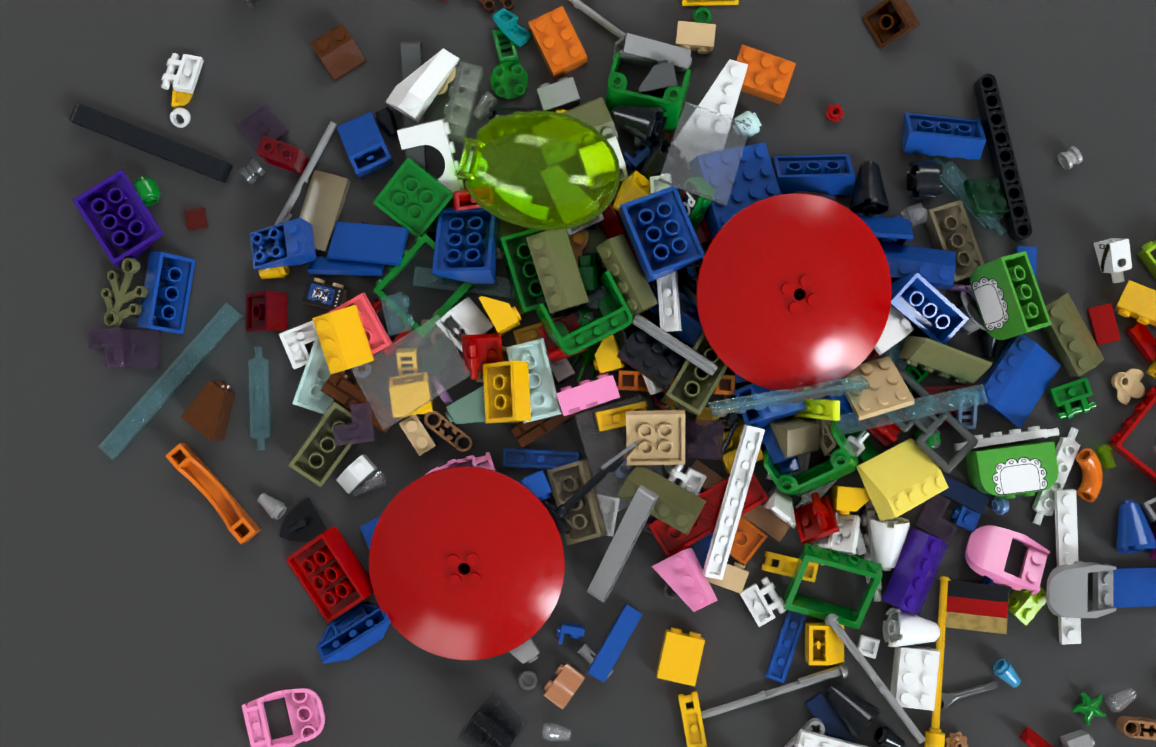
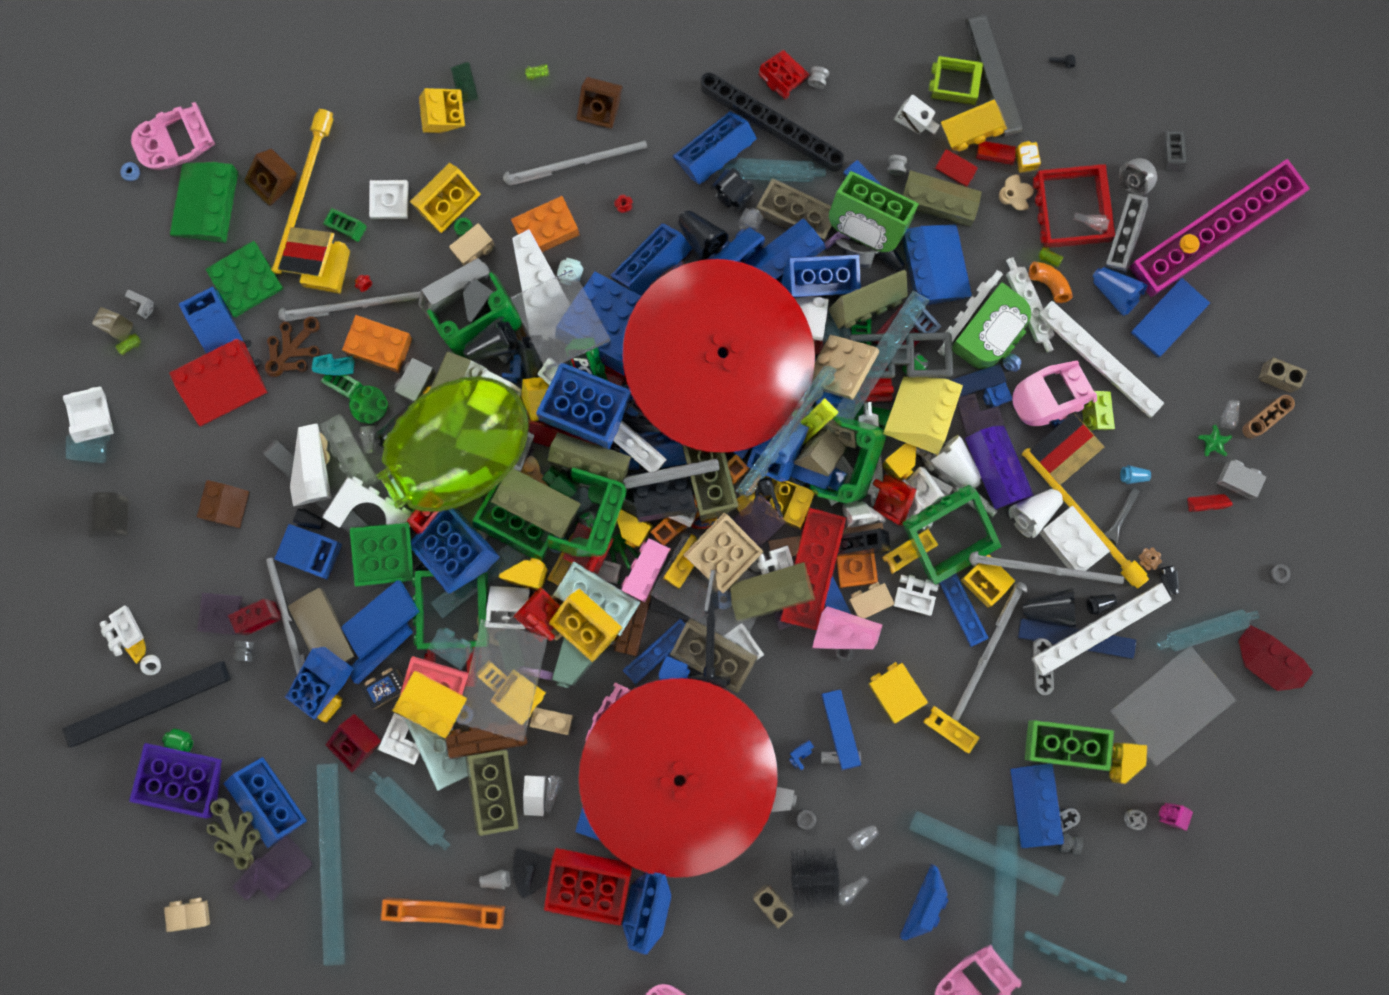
camera: 40 degrees left, 5 degrees down
(38, 318) = (188, 915): none -> tan brick
(196, 219) = (234, 727): clear red tile -> none
(211, 410) = (382, 853): reddish brown slope -> none
(359, 430) = (505, 757): clear purple plate -> none
(442, 432) = (566, 692): medium nougat beam -> none
(449, 698) = (776, 904): none -> dark tan piece
(564, 685) = (835, 796): nougat brick -> none
(622, 543) = (775, 651): light grey beam -> none
(733, 502) = (823, 544): white plate -> none
(764, 529) = (864, 542): none -> black slope
(802, 33) = (548, 169): none -> light grey bar
(868, 646) = (1021, 552): white tile -> none
(986, 197) = (787, 160): clear green plate -> none
(1046, 130) = (782, 74): none -> red plate
(1062, 279) = (896, 165): none -> light grey wheel
(1069, 590) = (1116, 374): light grey slope -> none
(1070, 392) = (981, 236): green plate -> none

